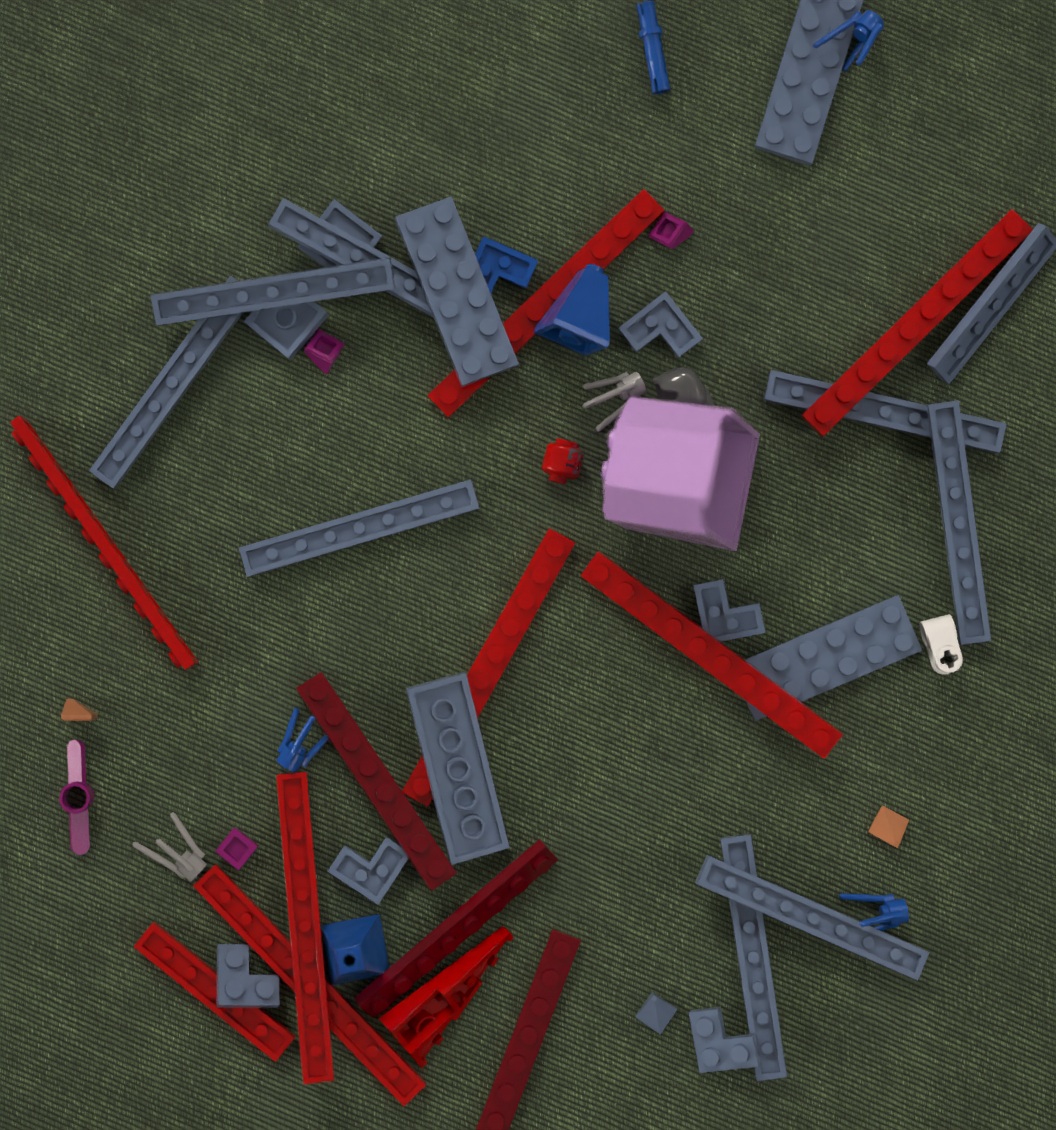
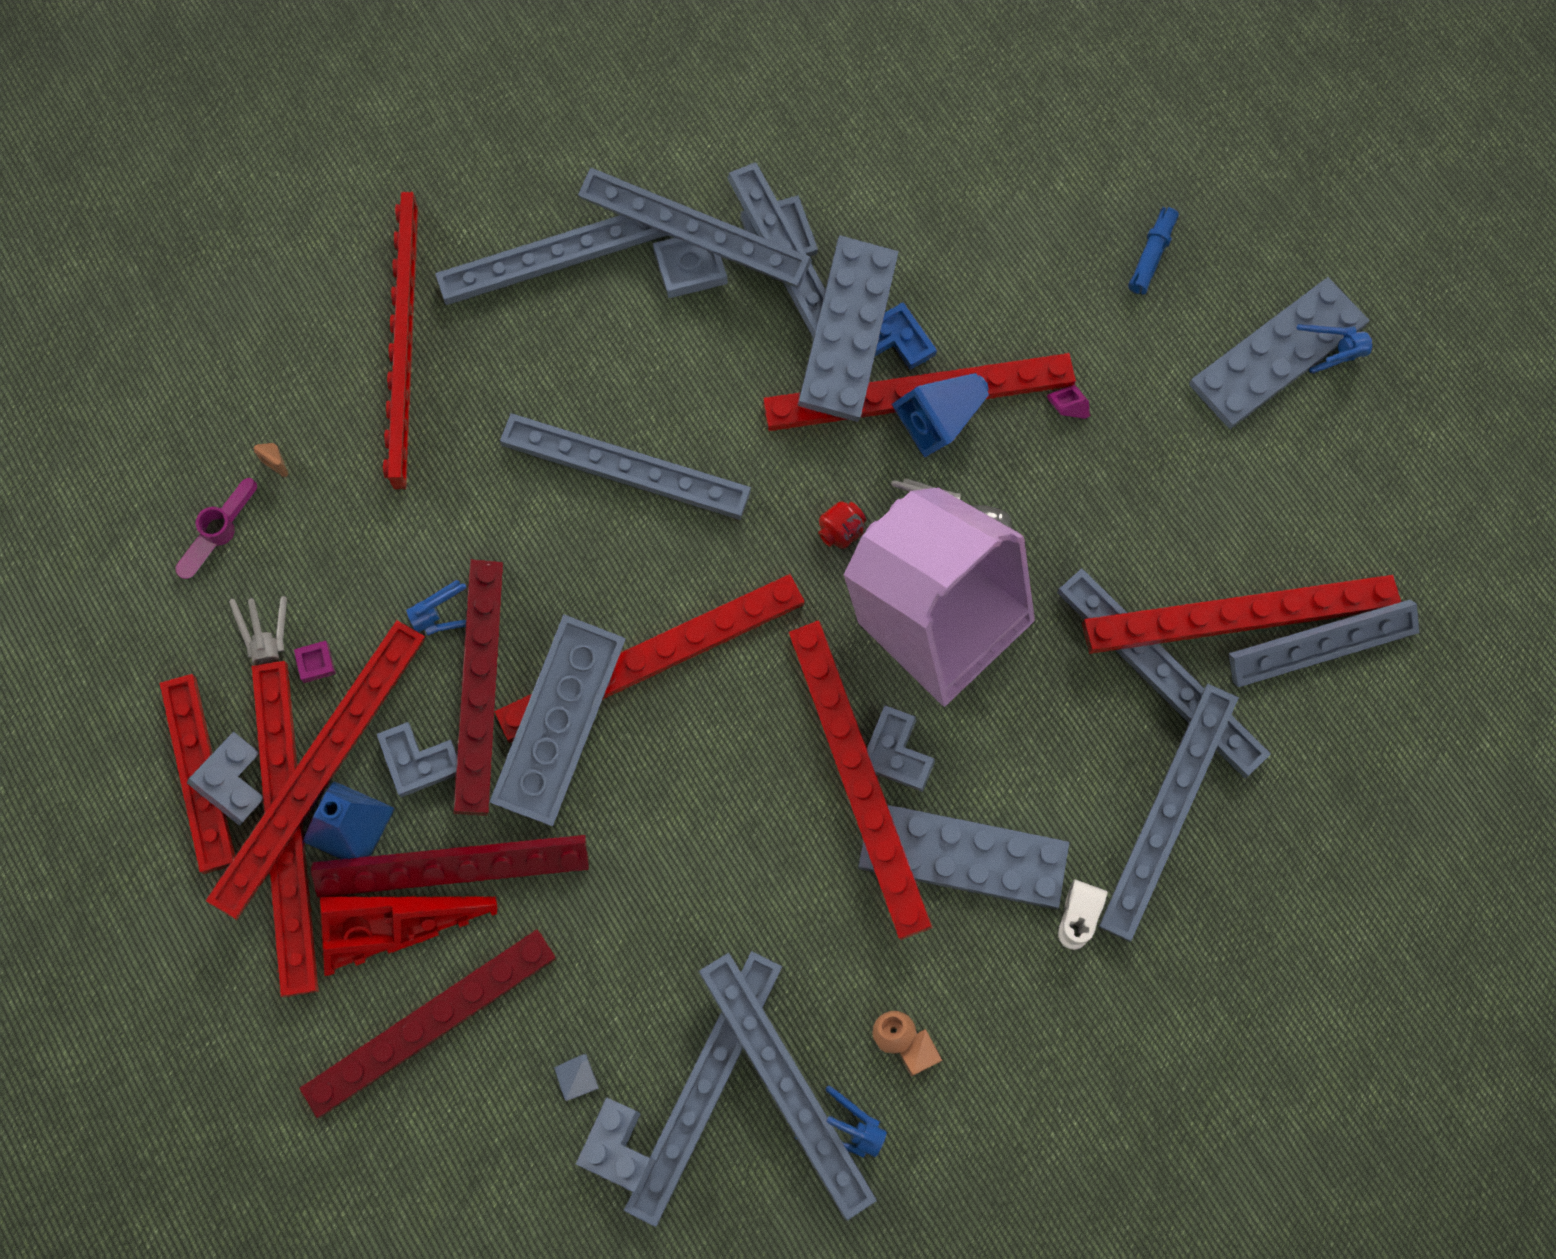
camera: 35 degrees right, 15 degrees down
(323, 350) = (702, 309): magenta slope -> none
(663, 319) = (1010, 464): sand blue plate -> none
(871, 824) = (898, 1041): none -> nougat plate

